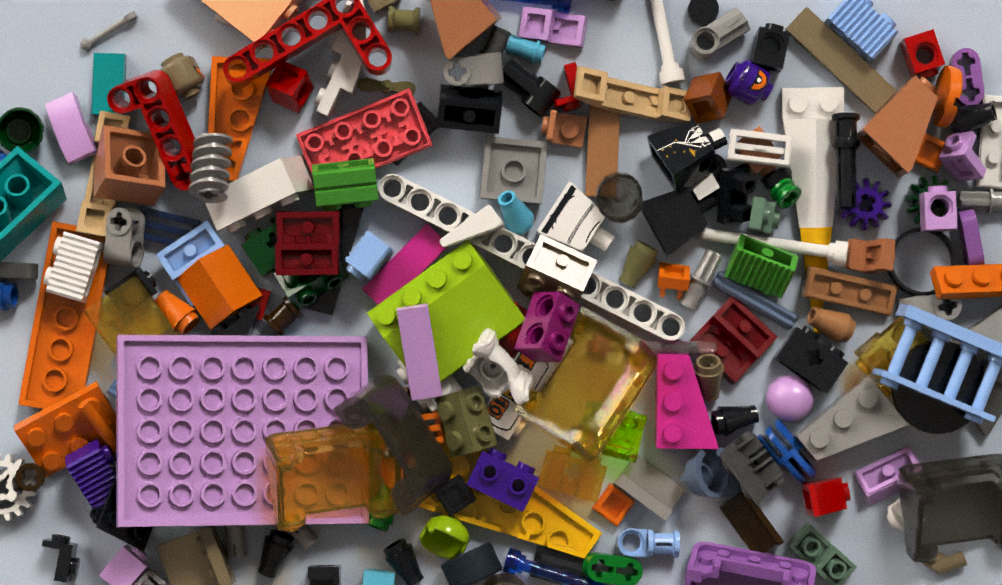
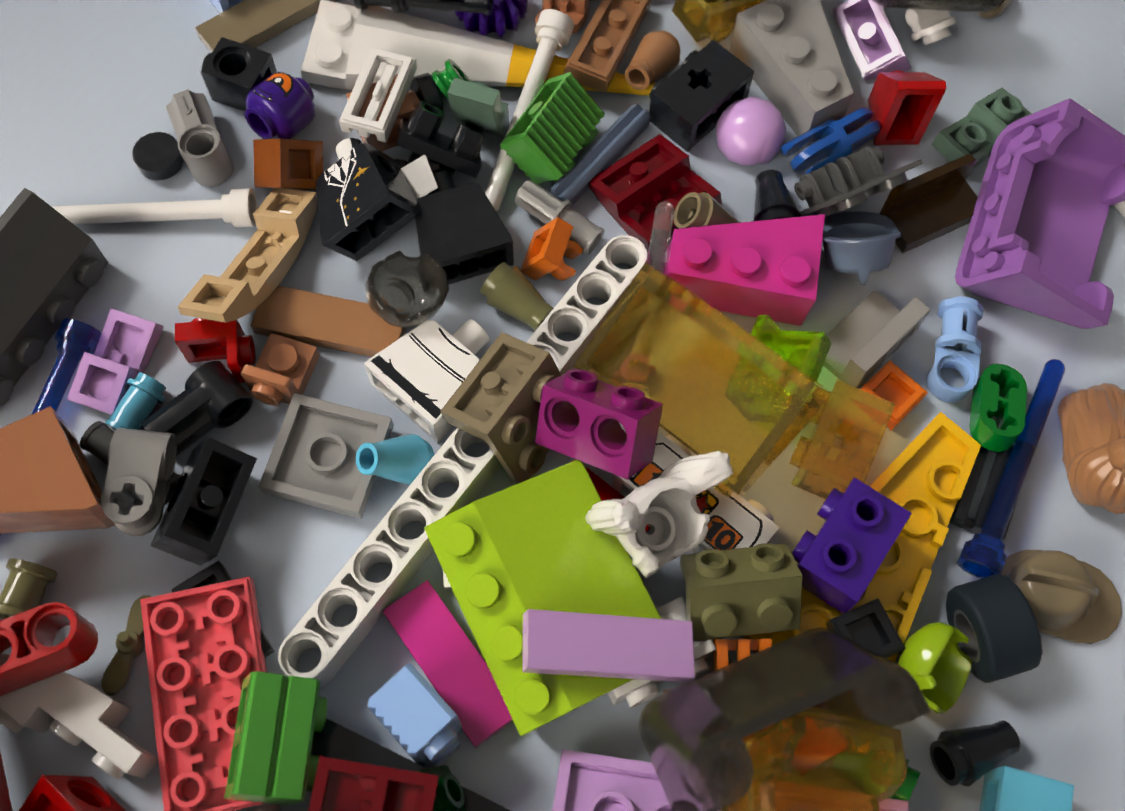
camera: 85 degrees left, 20 degrees down
(479, 224) = (400, 501): white slope -> none

